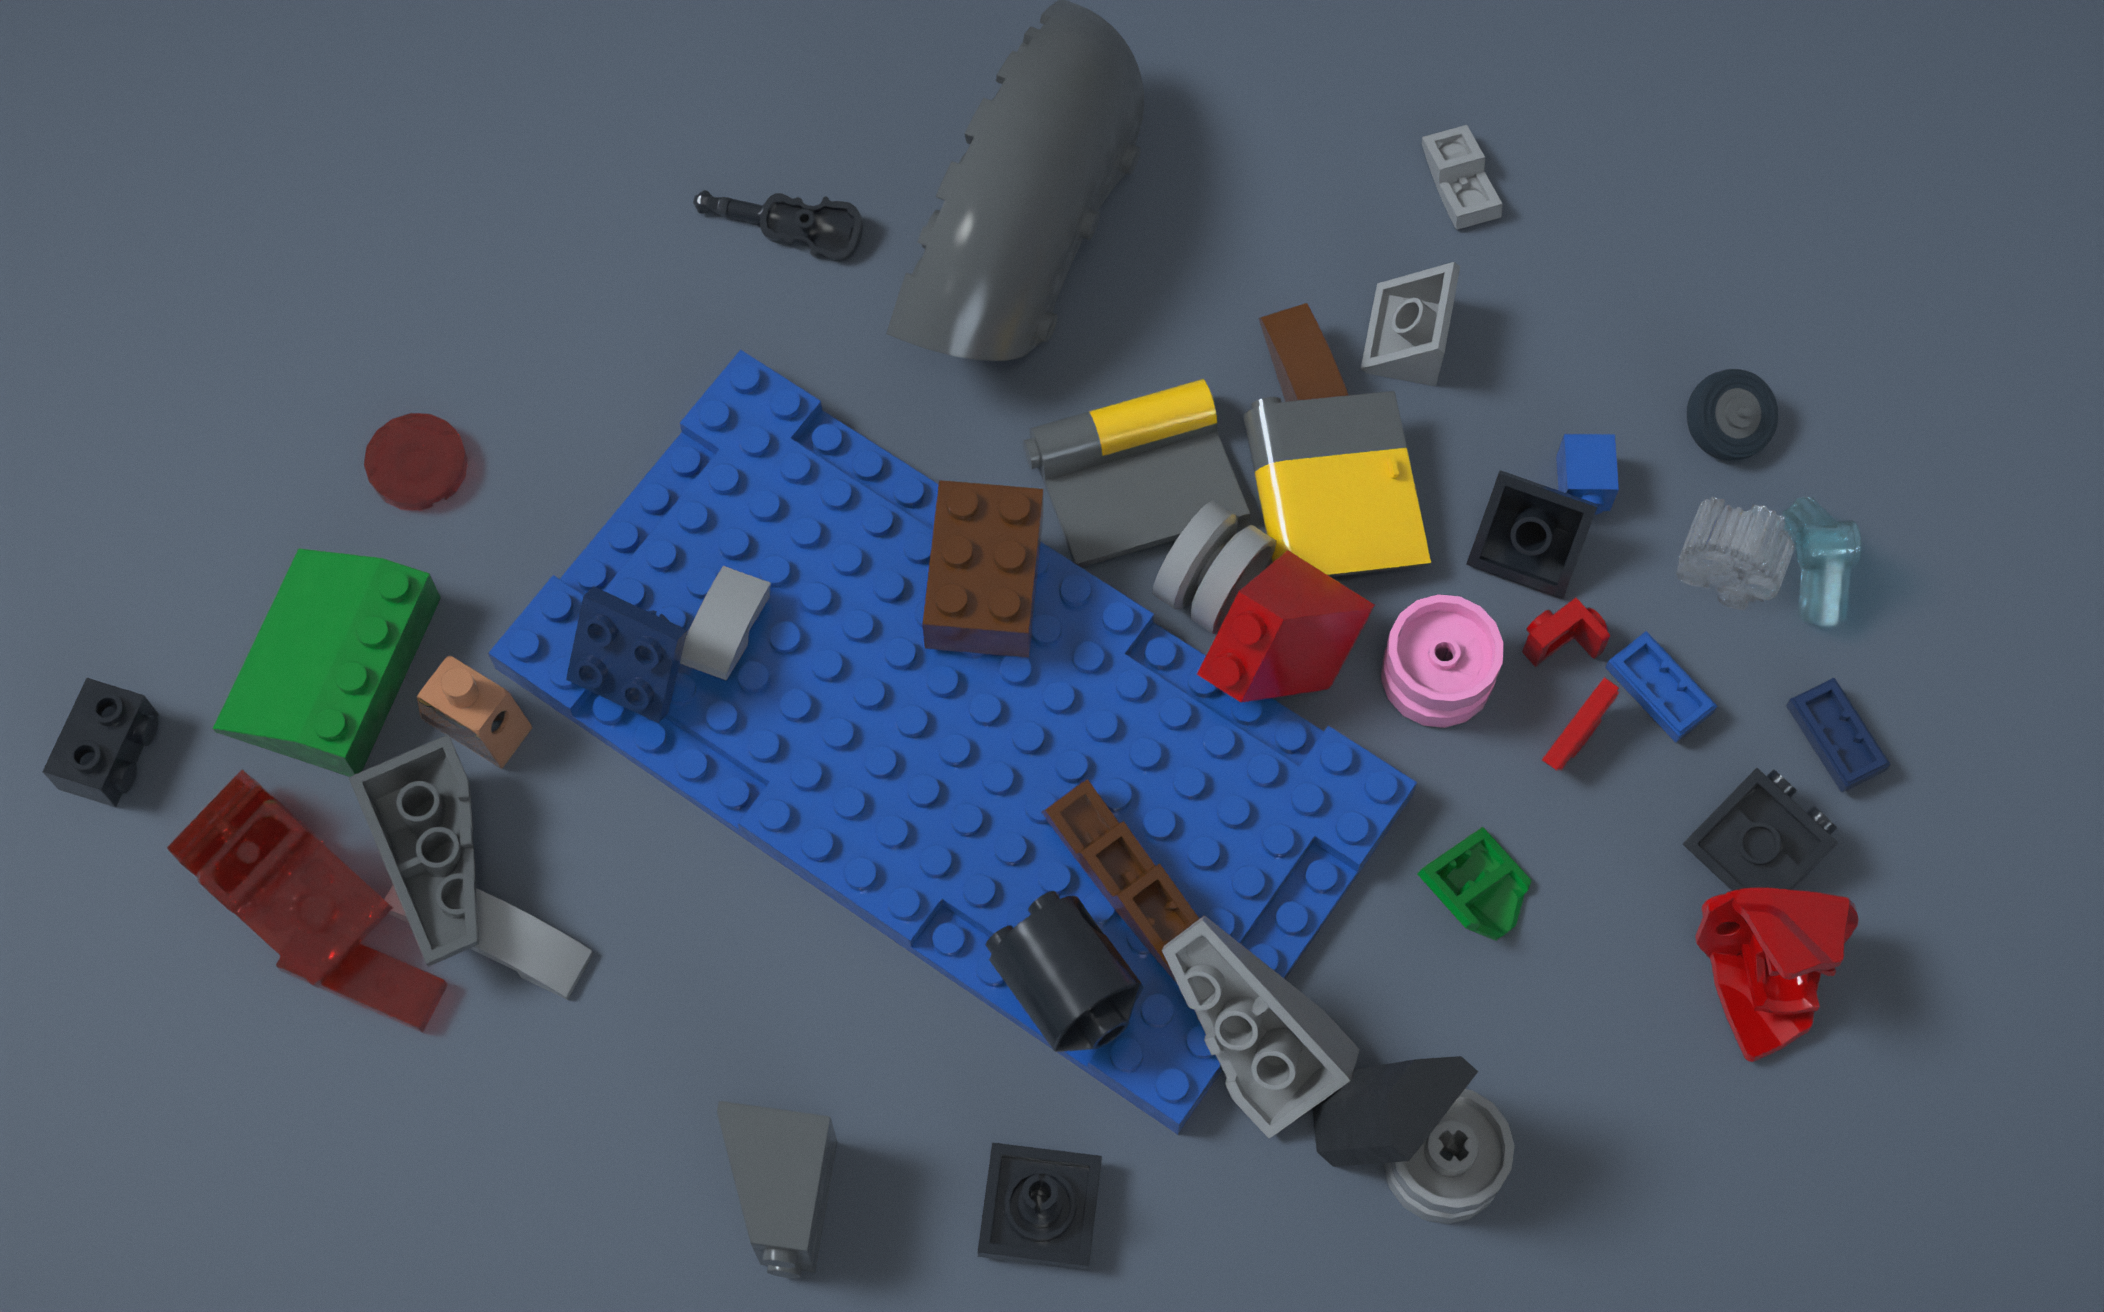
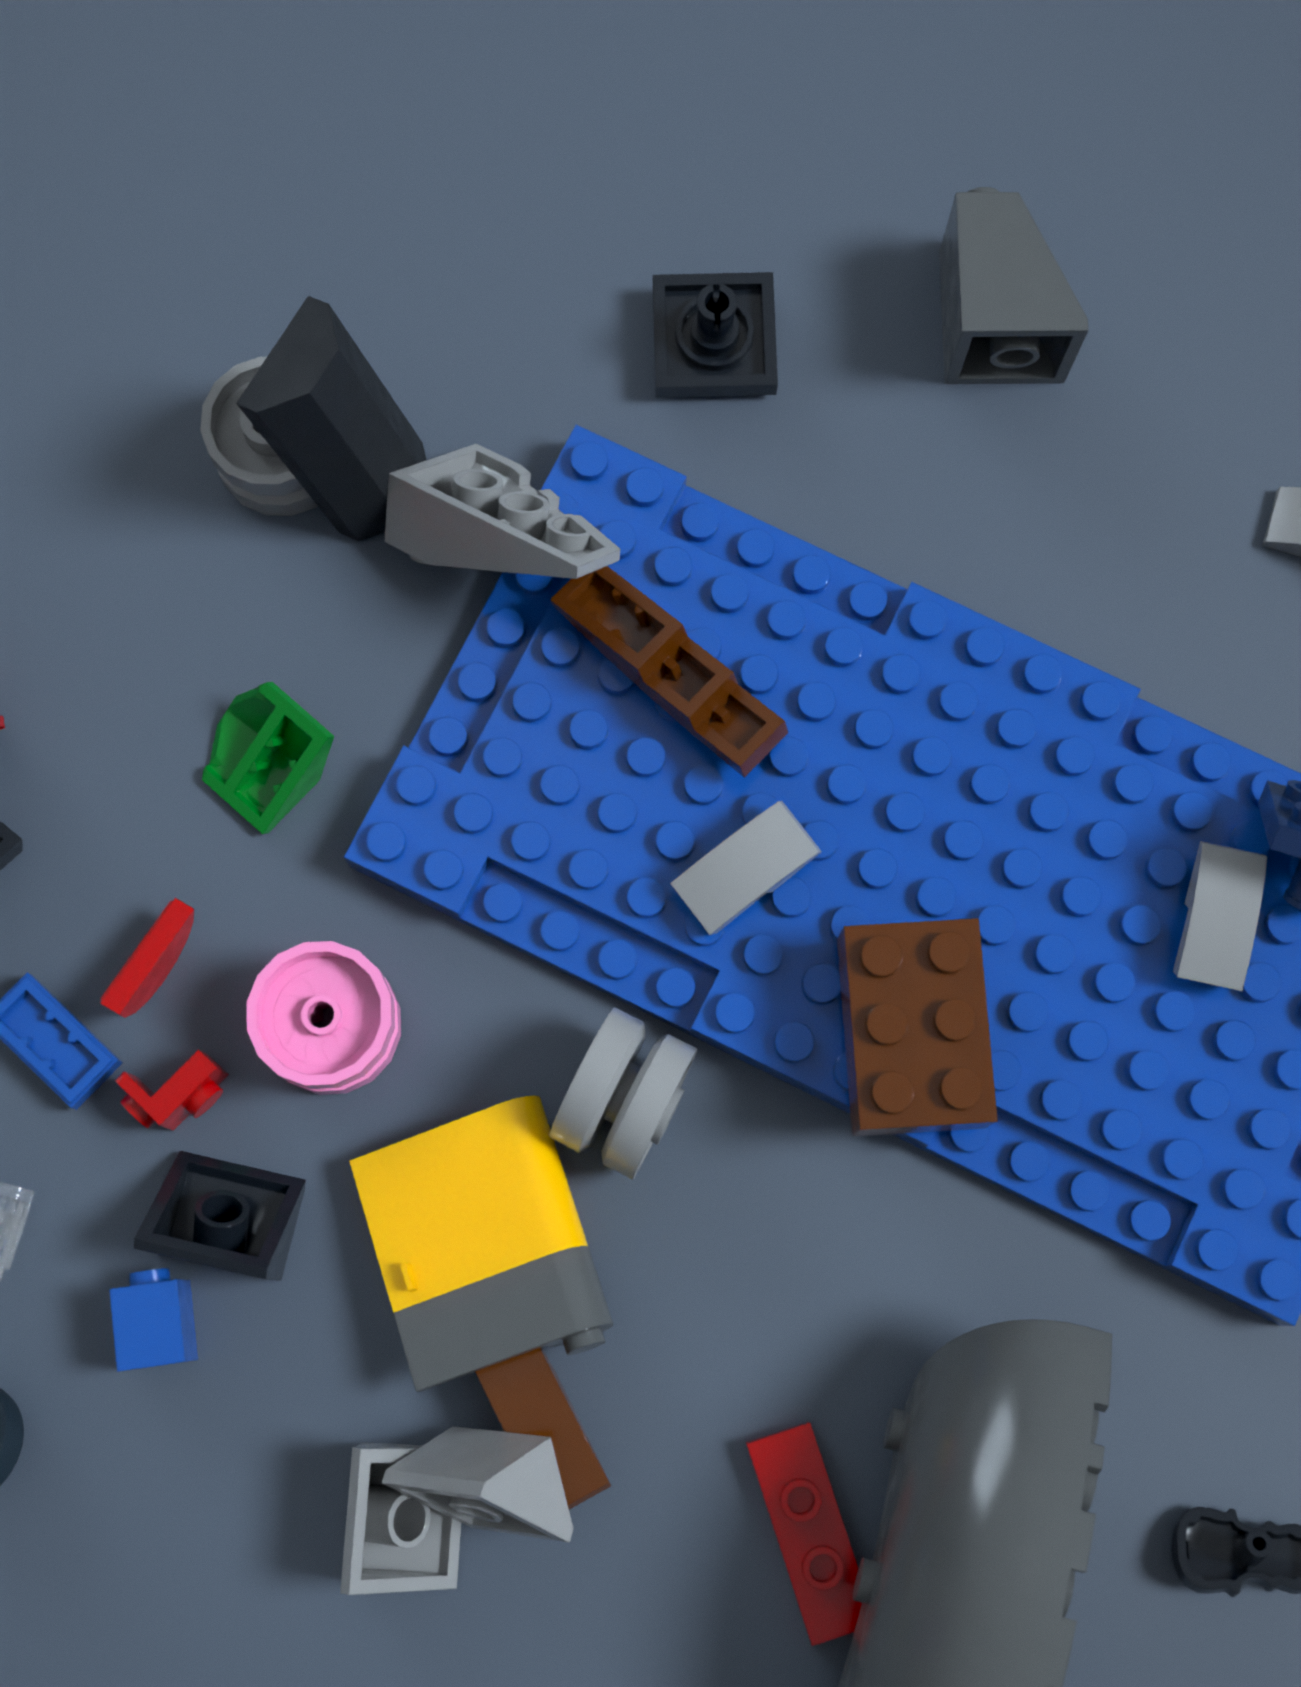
camera: 170 degrees right, 10 degrees up
(1066, 974) = (726, 523): black cylinder -> none
(1091, 710) = (745, 867): none -> light grey slope
(1119, 285) = (808, 1530): none -> red plate
(1134, 471) = (740, 1238): dark grey door -> none
(1285, 633) = (526, 1009): red slope -> none
(1352, 323) = (488, 1482): none -> light grey slope

